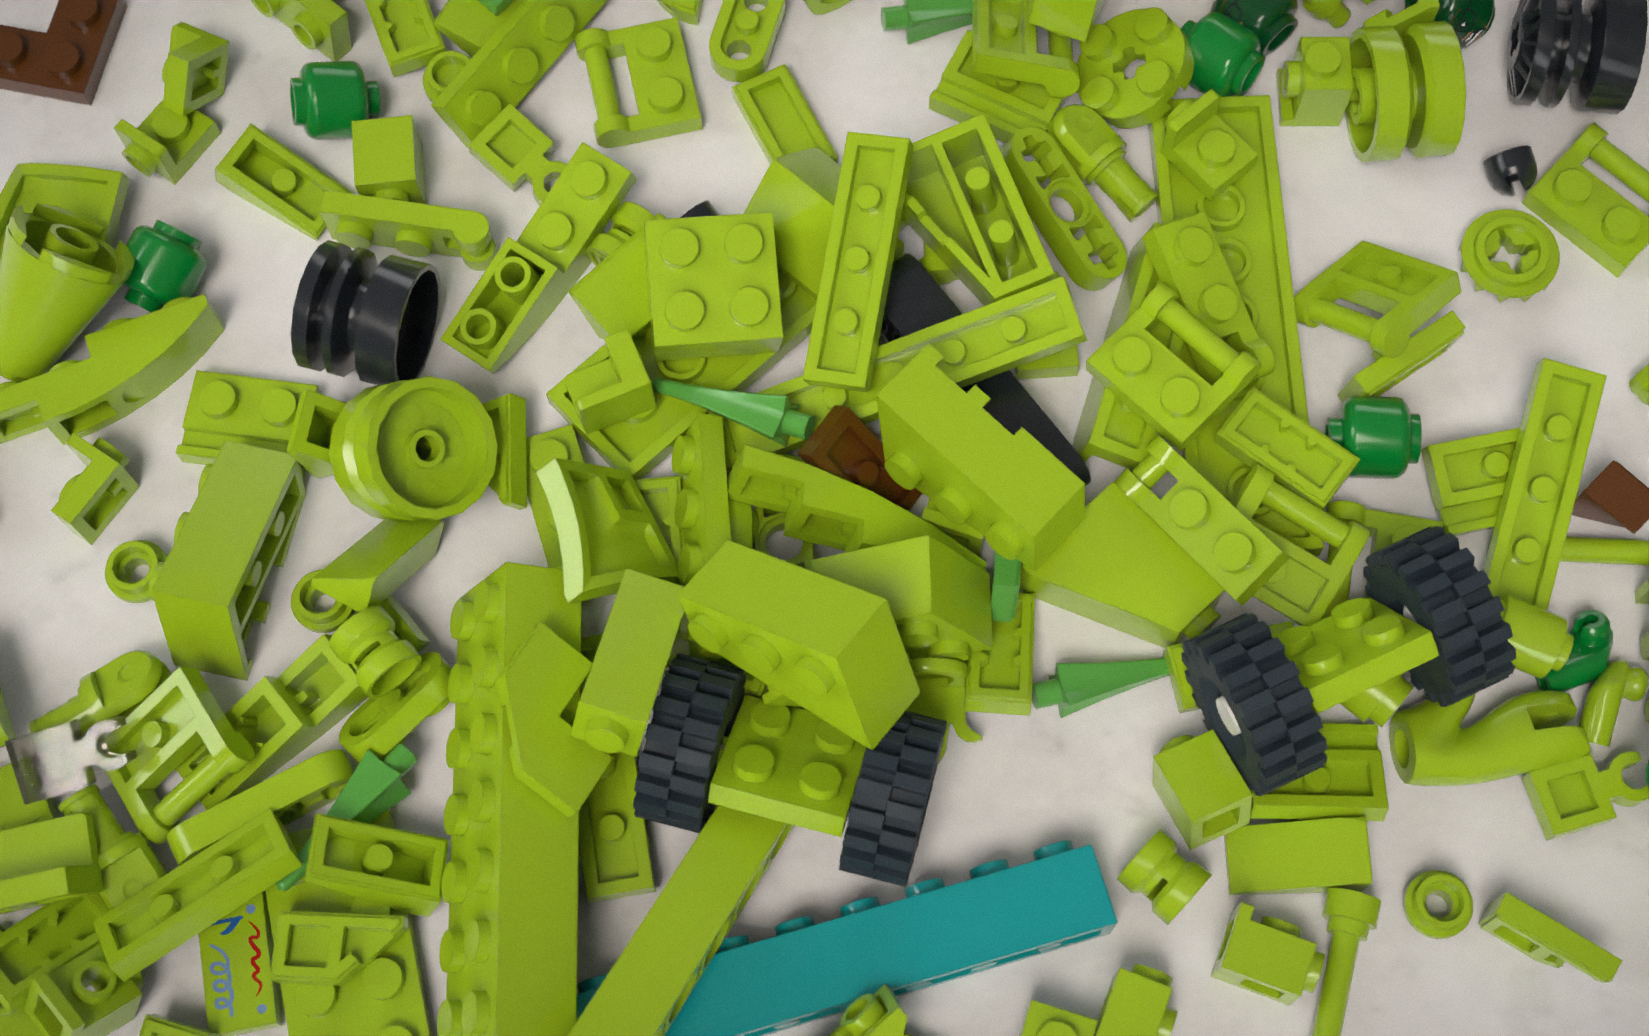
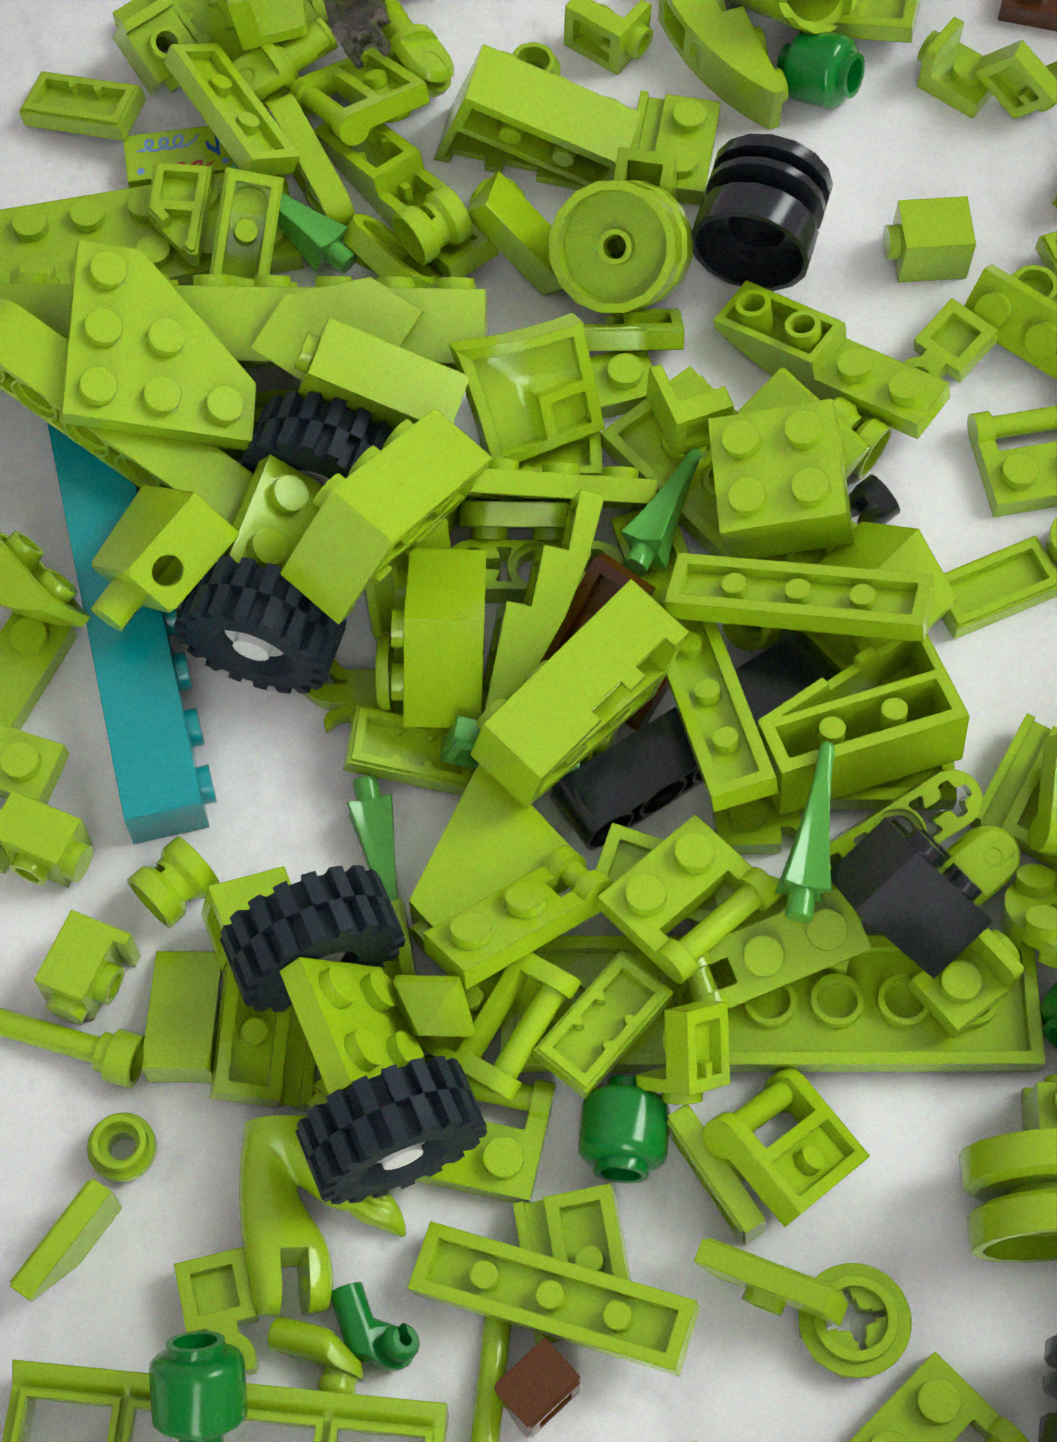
camera: 90 degrees right, 5 degrees down
(276, 181) = (916, 157): lime slope -> none
(332, 97) = (1001, 191): green head -> none
(409, 227) = (862, 259): lime plate -> none
(594, 926) = (146, 358): none -> lime plate
(834, 896) = (158, 553): none -> lime torso
(1145, 250) = (808, 864): none -> bright green piece
(1151, 178) = (910, 896): none -> black brick
(1303, 593) = (434, 1005): none -> lime slope
(1323, 368) = (695, 1053): none -> lime bracket
(1502, 309) = (771, 1284): none -> lime plate
(1510, 167) = (962, 1338): black hinge -> none
(1538, 637) = (387, 1250): lime brick -> none

